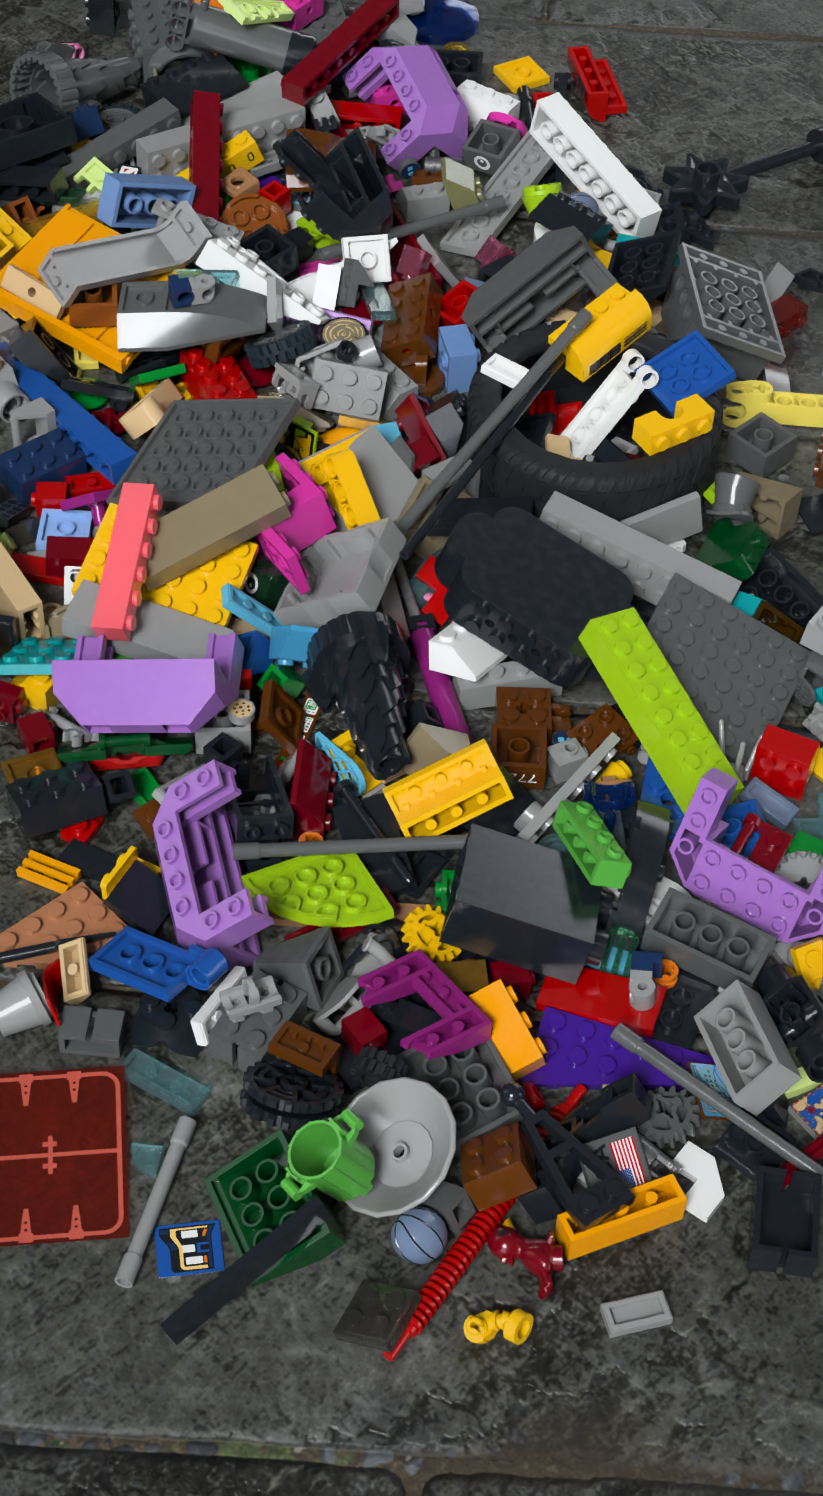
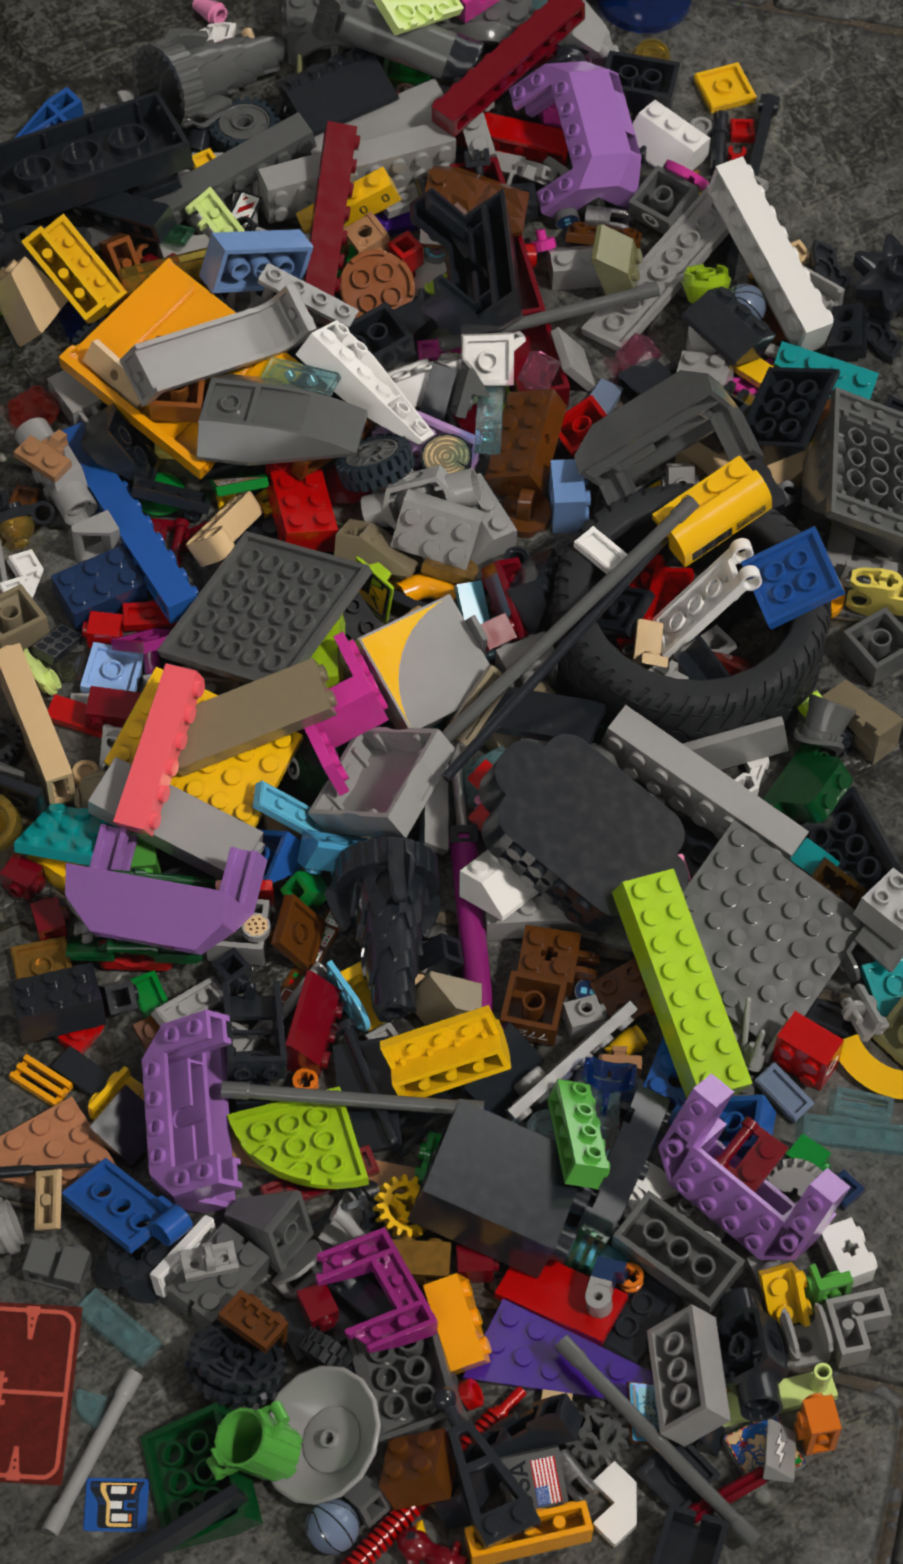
camera: 10 degrees right, 10 degrees up
(53, 987) = (23, 1216): red piece -> none
(86, 121) = (206, 132): dark blue slope -> none
(191, 290) = (281, 403): leg -> none
(274, 303) = (372, 418): light grey tile -> none
(296, 383) = (383, 519): light grey hinge -> none
(348, 487) = (407, 681): yellow beam -> none
(350, 352) = (443, 493): black hinge -> none
(595, 84) = (805, 116): red brick -> none
(659, 433) = (746, 654): yellow arch -> none

